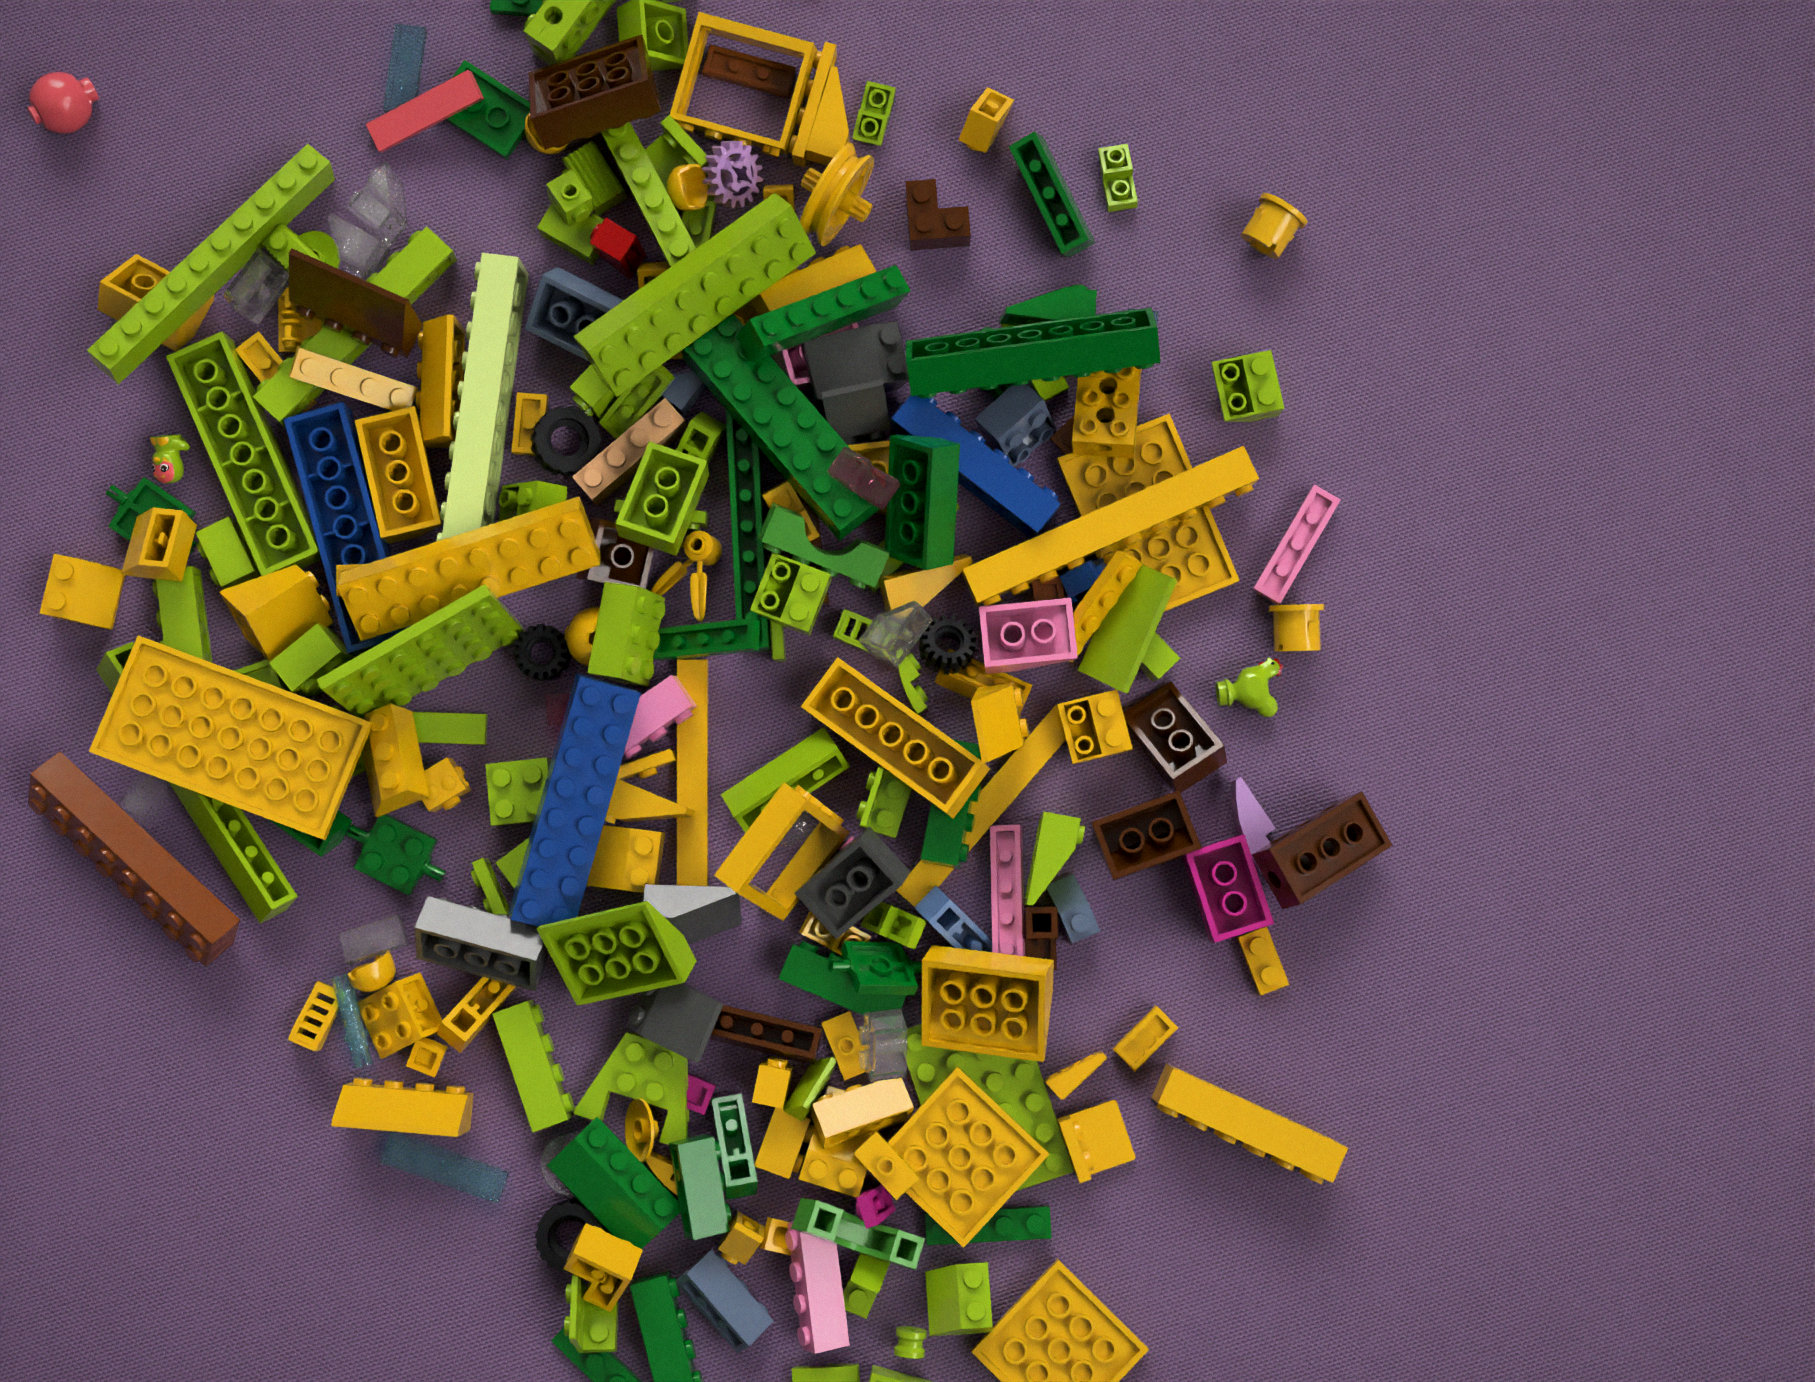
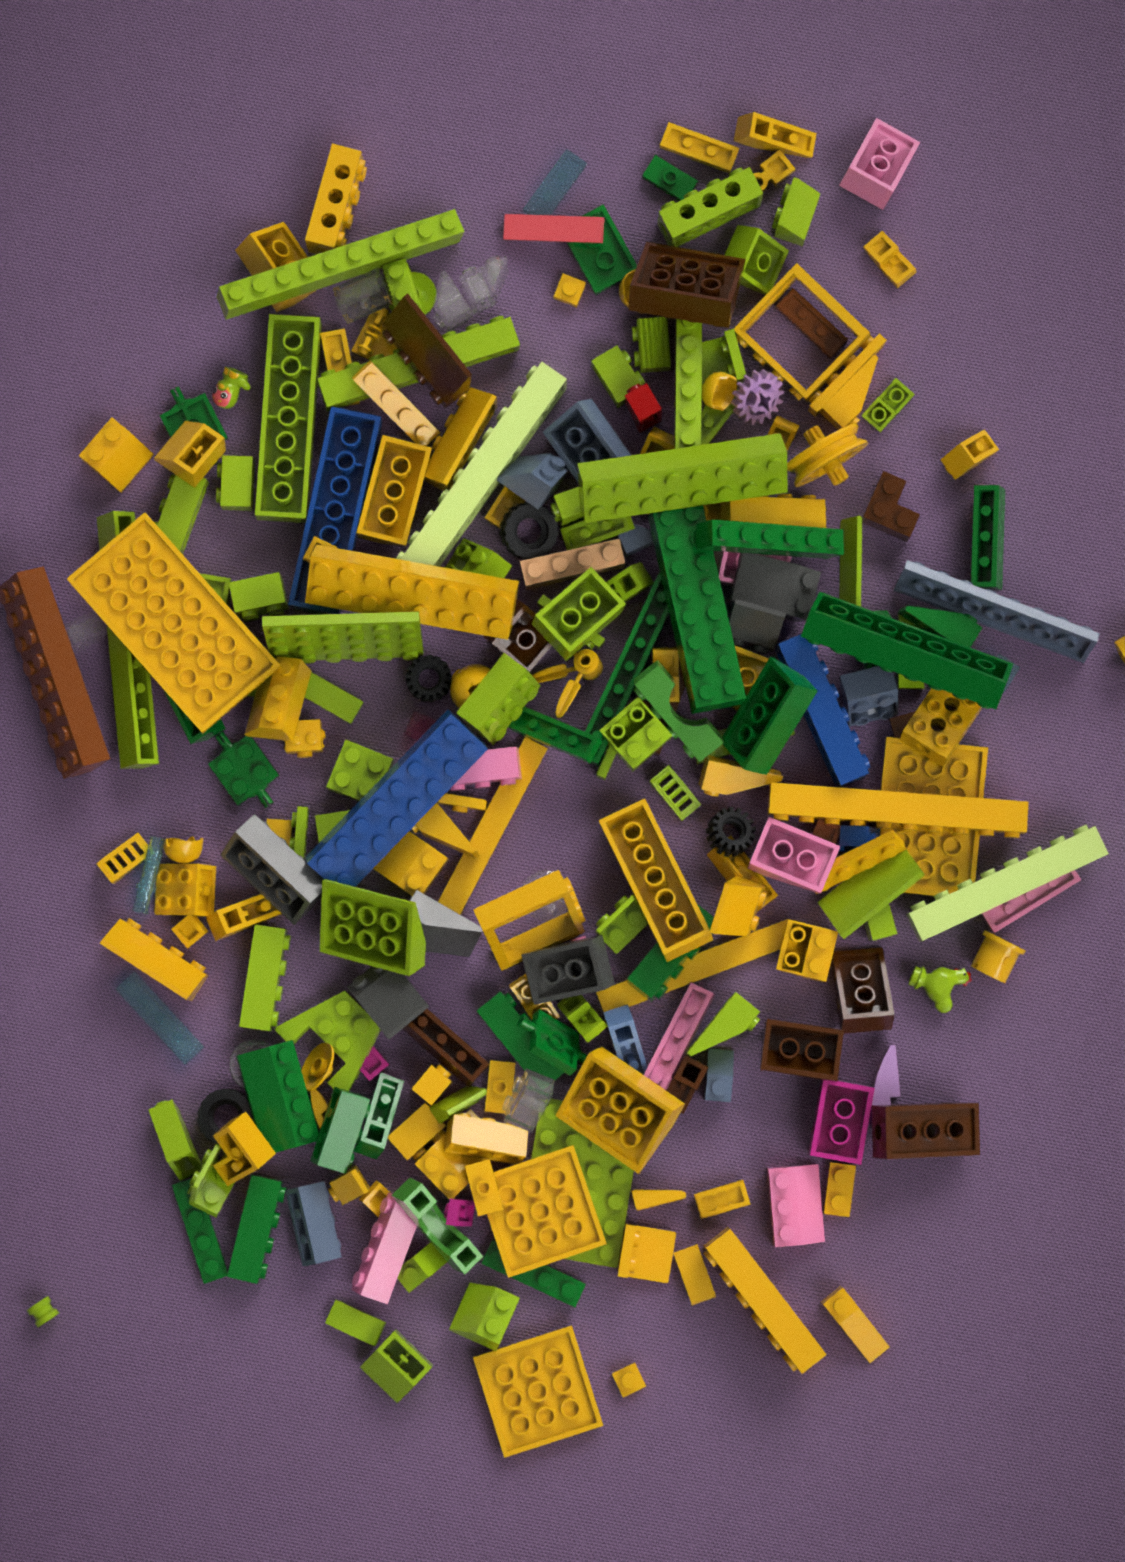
camera: 25 degrees right, 0 degrees up
(61, 102) = (288, 80): coral brick -> none
(174, 195) = (341, 164): none -> yellow brick
(277, 609) = (252, 545): yellow slope -> none
(373, 939) = (195, 824): clear plate -> none
(468, 896) = (281, 828): none -> yellow tile
(477, 168) = (569, 290): none -> yellow plate
(527, 1290) = (175, 1139): none -> lime slope
(542, 380) = (535, 477): none -> sand blue slope
(570, 197) = (627, 353): lime brick -> none
(805, 764) = (580, 864): lime brick -> none
(862, 478) = (733, 679): slope -> none
(895, 632) = (697, 803): clear slope -> none
(908, 674) = (690, 838): lime slope -> none
(910, 1342) = (432, 1326): lime wheel -> none
(922, 294) = (851, 561): none -> lime slope
(1103, 265) = (996, 611): none -> sand blue plate
(1117, 177) = (1045, 549): lime slope -> none
(1149, 1284) = (628, 1379): none -> yellow plate
(1159, 1134) = (694, 1274): none -> yellow slope
(1226, 1003) = (795, 1205): none -> bright pink slope
(1248, 387) = (1056, 759): lime slope -> none
(1267, 543) = (1007, 883): none -> yellowish green brick
(1355, 1094) = (855, 1324): none -> yellow slope

